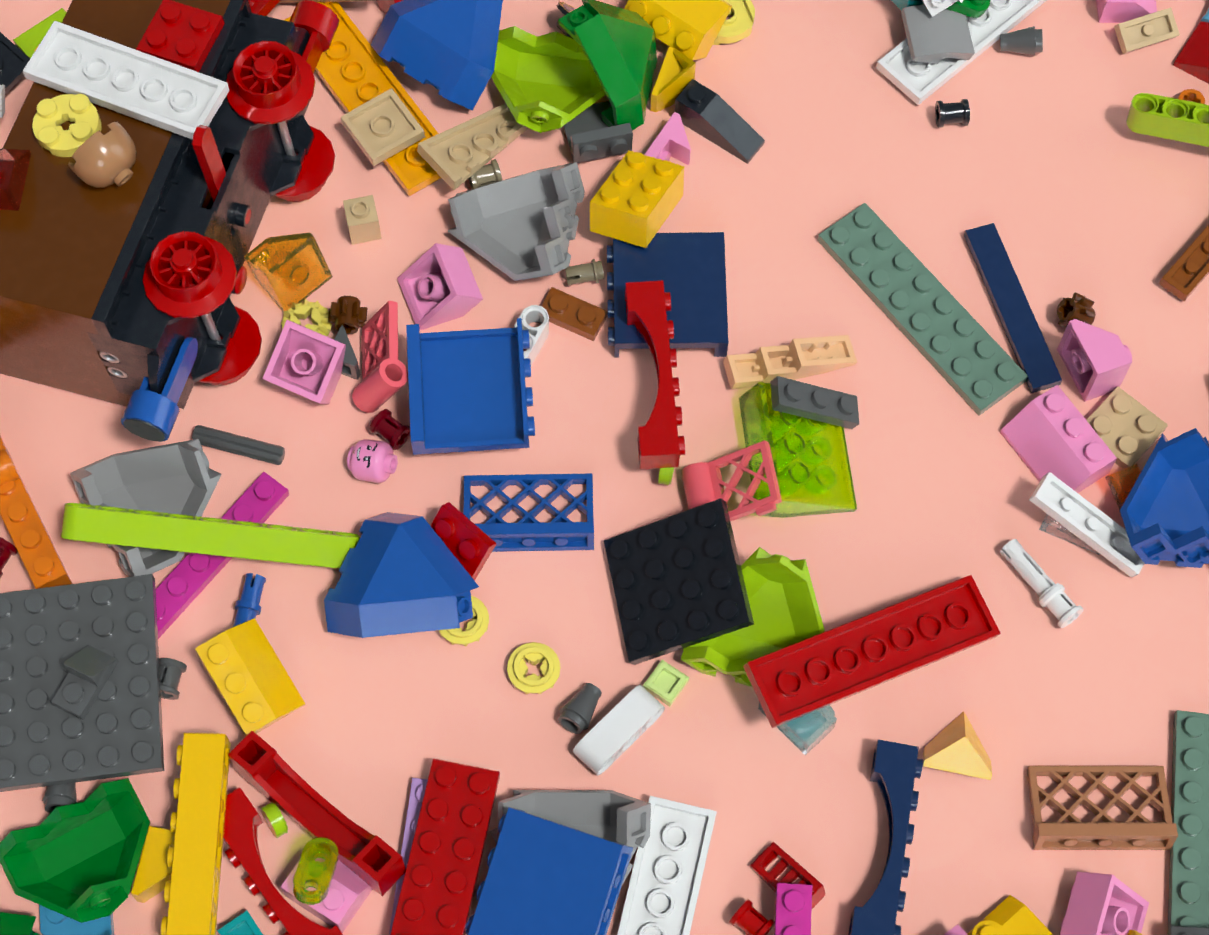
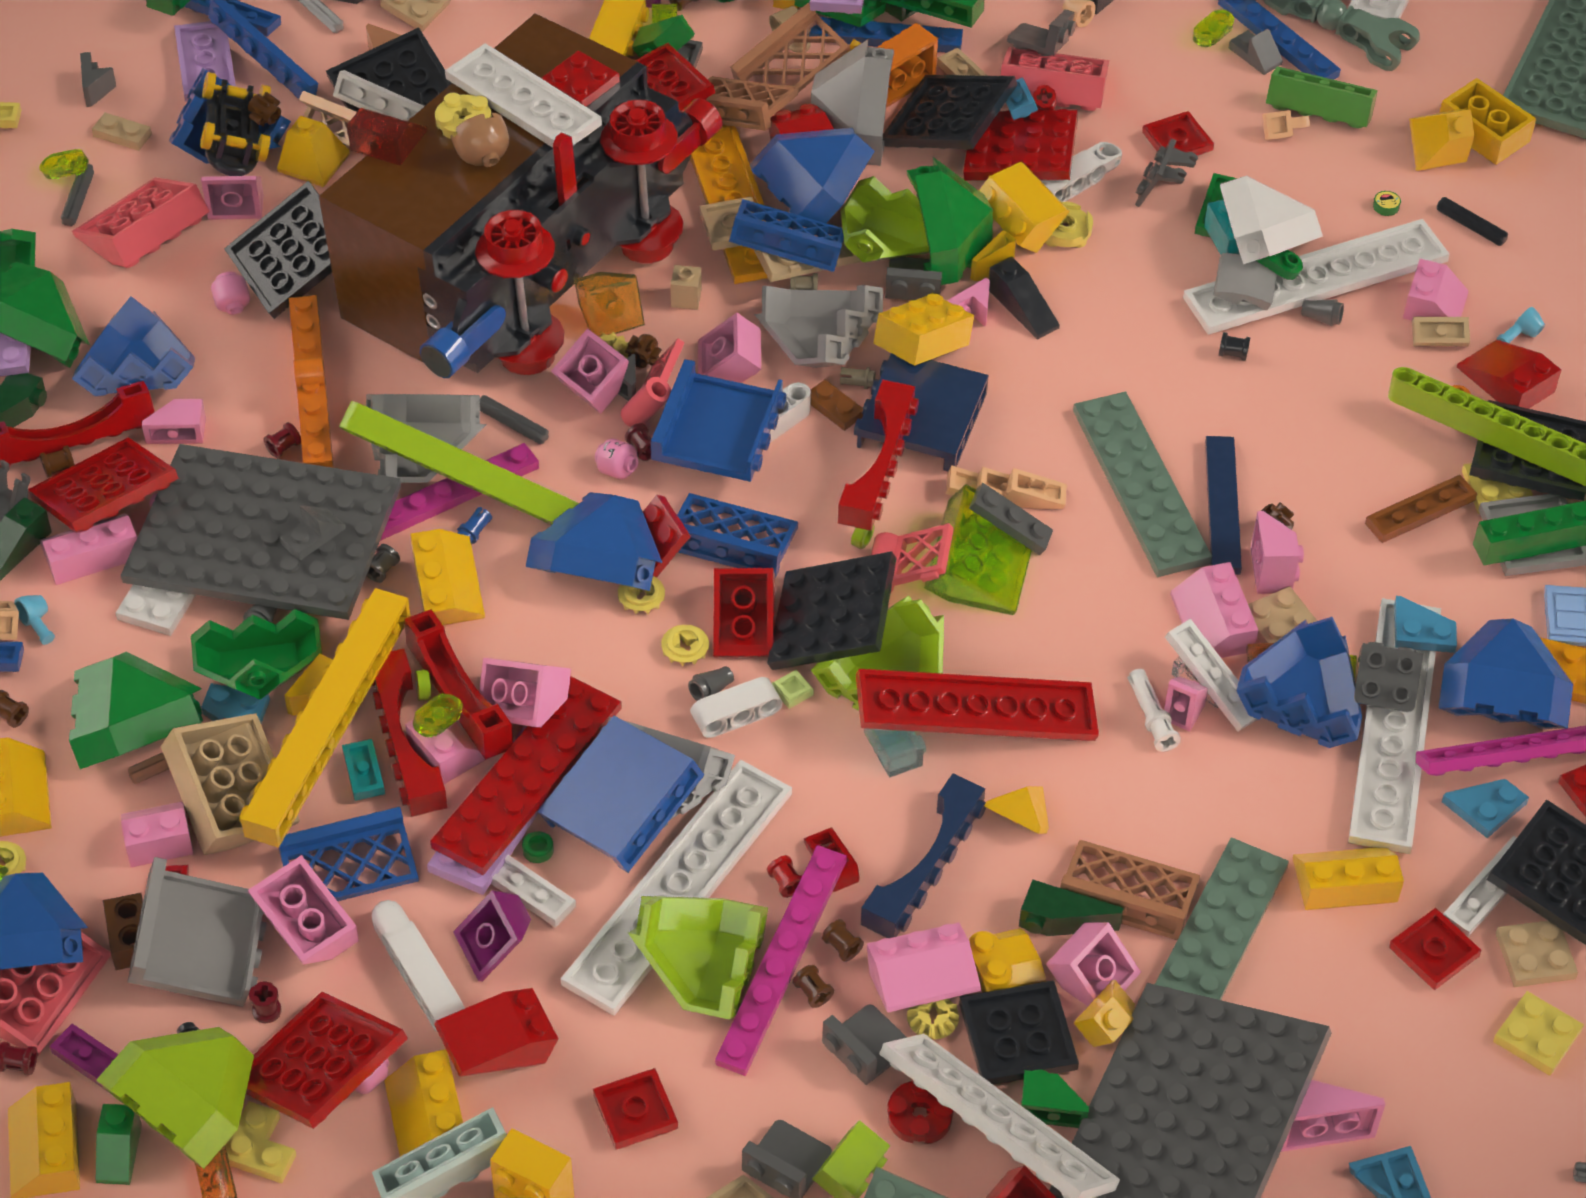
camera: 20 degrees right, 15 degrees down
(392, 798) = (524, 690): none -> bright pink slope
(448, 137) = (794, 243): none -> blue fence
(582, 610) = (743, 612): none -> red slope
(1039, 865) = (1062, 912): none -> dark green slope
(1073, 564) = (1185, 701): none -> bright pink slope

